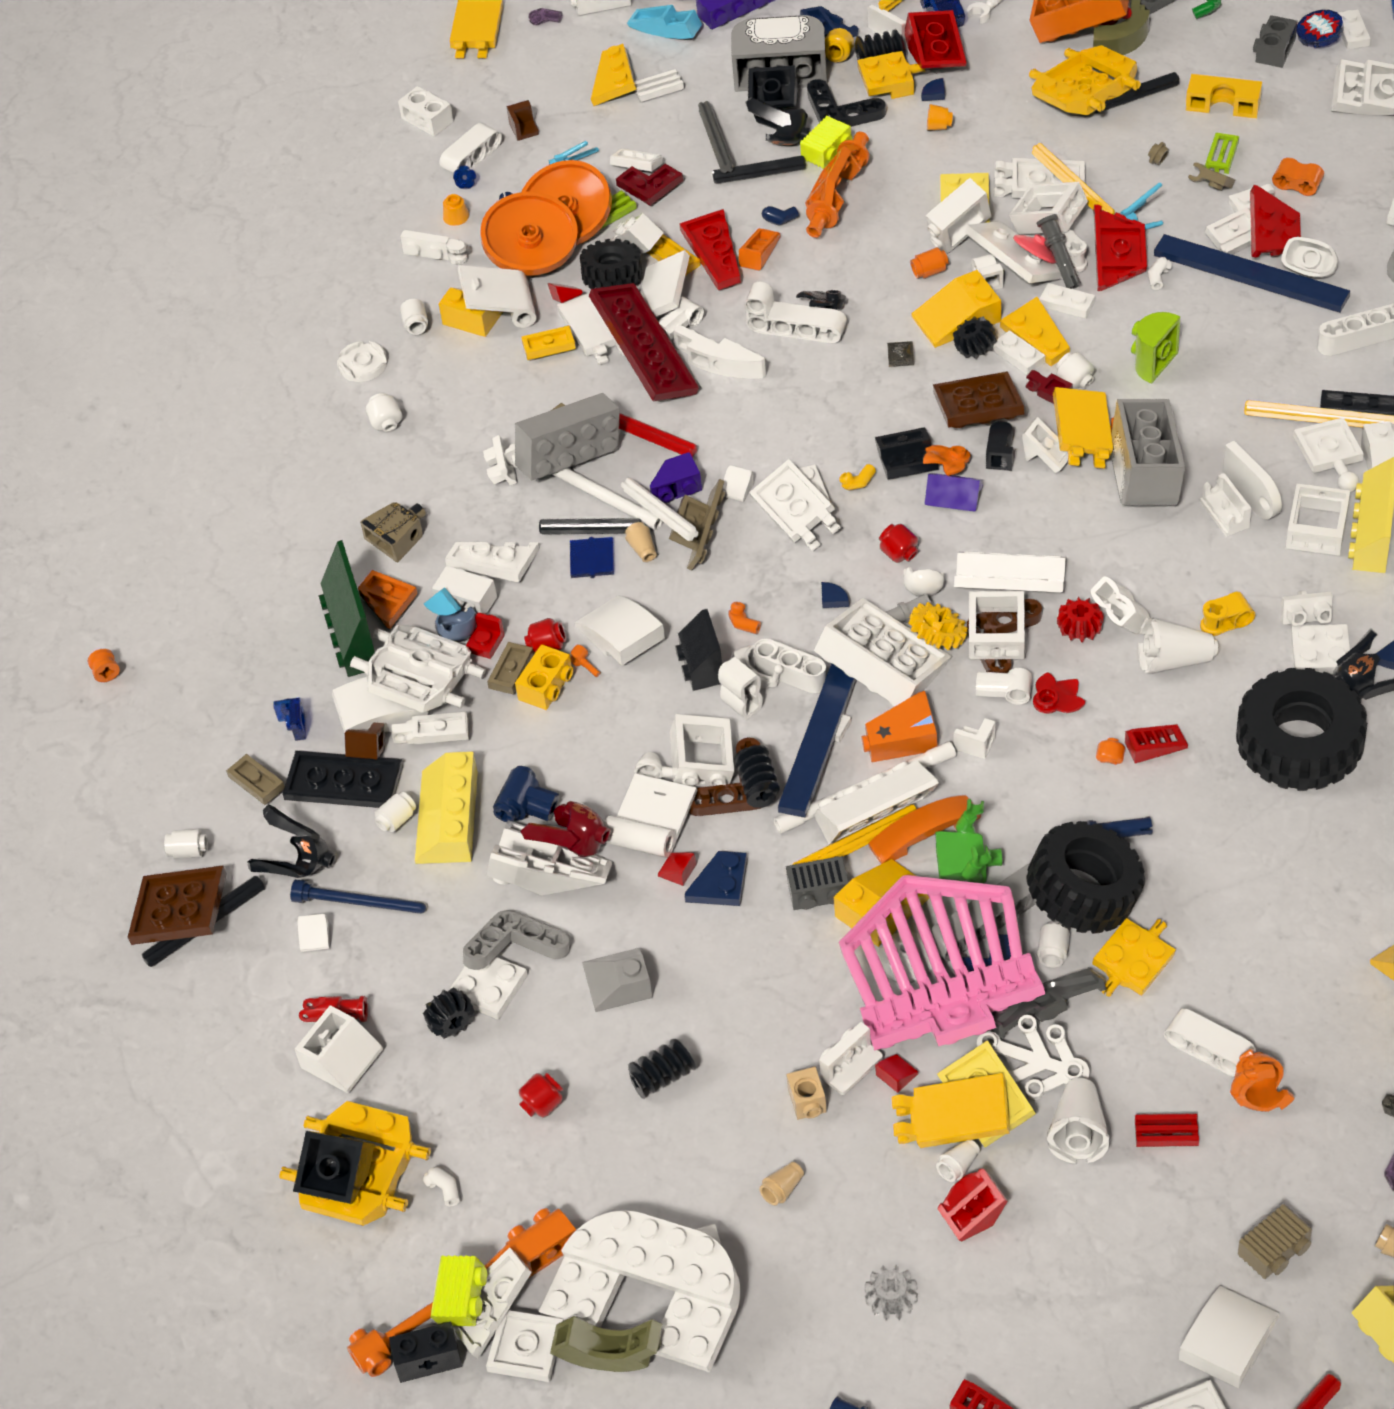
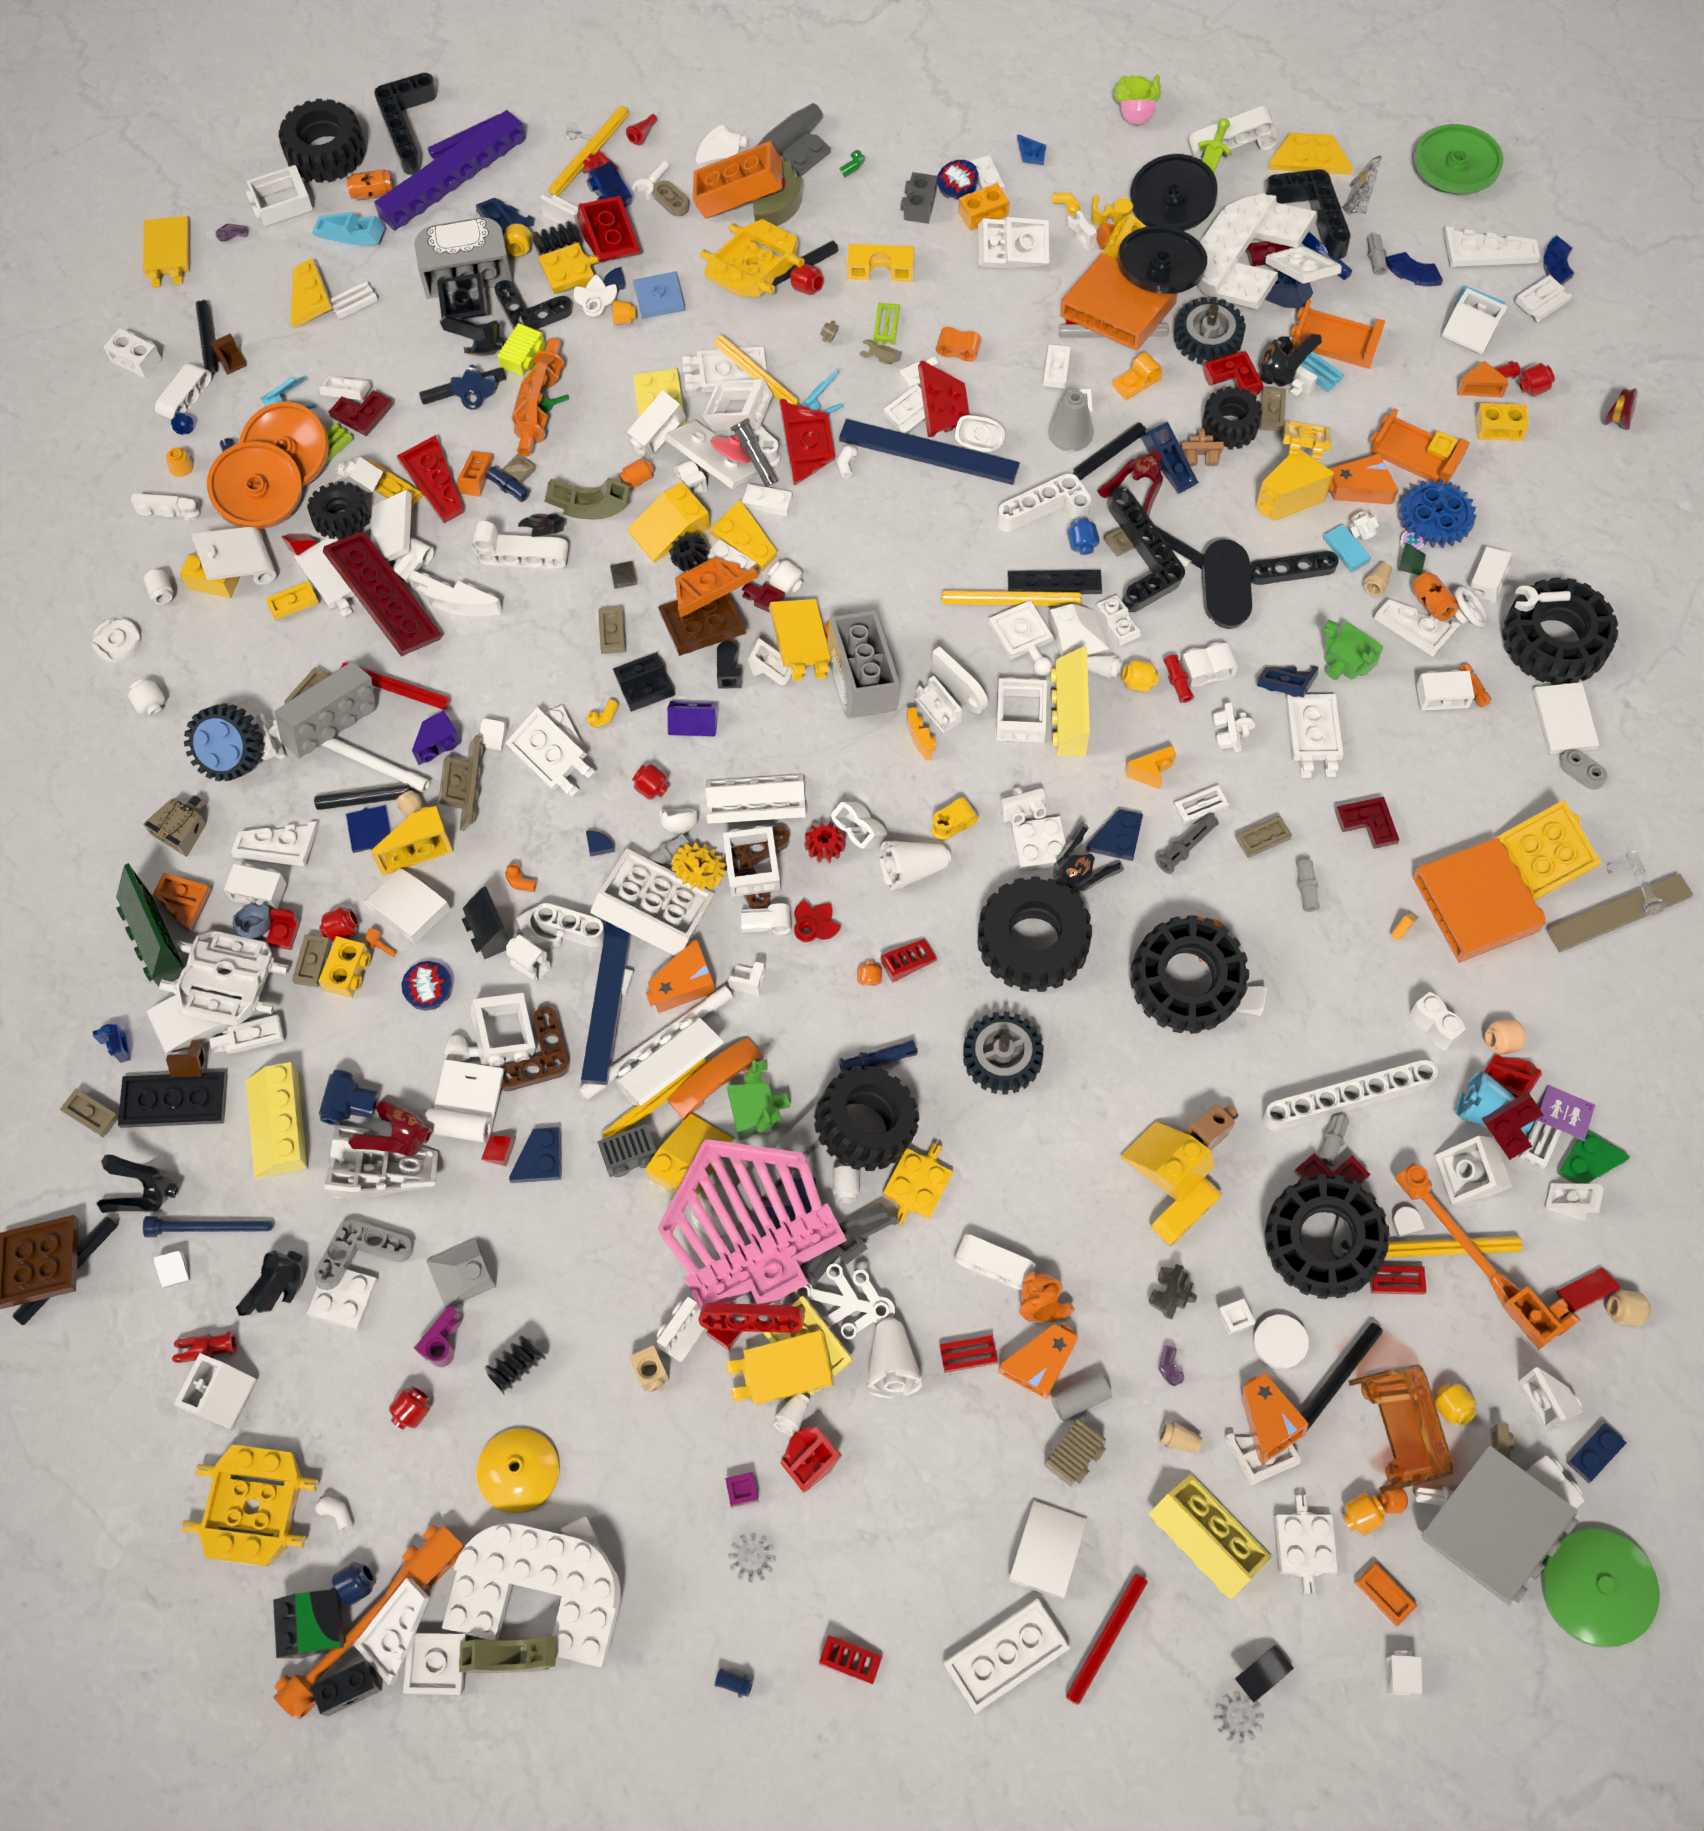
camera: 15 degrees left, 15 degrees up
(185, 843) = (34, 1192): white brick -> none
(333, 1166) = (230, 1521): black slope -> none
(394, 812) = (227, 1130): white brick -> none
(396, 1281) = (308, 1624): none -> black slope
(425, 948) = (278, 1275): none -> black piece
(442, 603) = (236, 904): medium azure tile -> none
(448, 1013) = (311, 1338): black gear -> none
(449, 1244) = (353, 1582): none -> dark blue head
(456, 455) = (223, 742): none -> wheel
(458, 1290) = (366, 1630): neon yellow brick -> none
(502, 101) = (206, 335): none -> black axle
(582, 1032) = (435, 1337): none -> magenta plate
(627, 706) = (427, 985): none -> tile
(636, 568) = (413, 842): none -> yellow slope
(648, 1188) = (528, 1485): none -> yellow dish
(659, 509) = (425, 775): white axle -> none
(715, 137) = (416, 355): dark grey axle -> none
(757, 776) = (556, 1050): black piece -> none
(769, 168) = (472, 384): none -> dark blue plate
(778, 216) = (489, 436): dark blue arm -> none
(781, 1183) = (639, 1463): tan cone -> none
(791, 260) = (507, 484): none -> dark blue pin
(805, 249) = (519, 469): none -> dark tan tile
(847, 193) = (546, 404): none -> green hand
(874, 285) = (588, 503): none -> olive arch
(879, 402) = (611, 630): none -> dark tan plate
(890, 1225) = (741, 1489): none -> magenta plate
(911, 100) = (595, 294): none -> white plate
(927, 1050) = (751, 1322): none -> red beam
(952, 459) = (684, 684): orange plate -> none
(979, 107) = (658, 295): none -> medium blue plate
(992, 365) = (709, 583): none -> orange wing
(1006, 21) = (670, 198): none -> dark tan plate
(1141, 104) = (806, 279): none -> red head
(1155, 343) = (853, 543): lime brick -> none
(1201, 530) = (920, 735): none -> light orange slope
(1248, 1145) = (1041, 1360): none -> orange slope
(1249, 839) = (1003, 1053): none -> wheel
(1290, 1187) = (1081, 1396): none -> light grey pin
(1350, 48) = (985, 203): none -> light orange brick

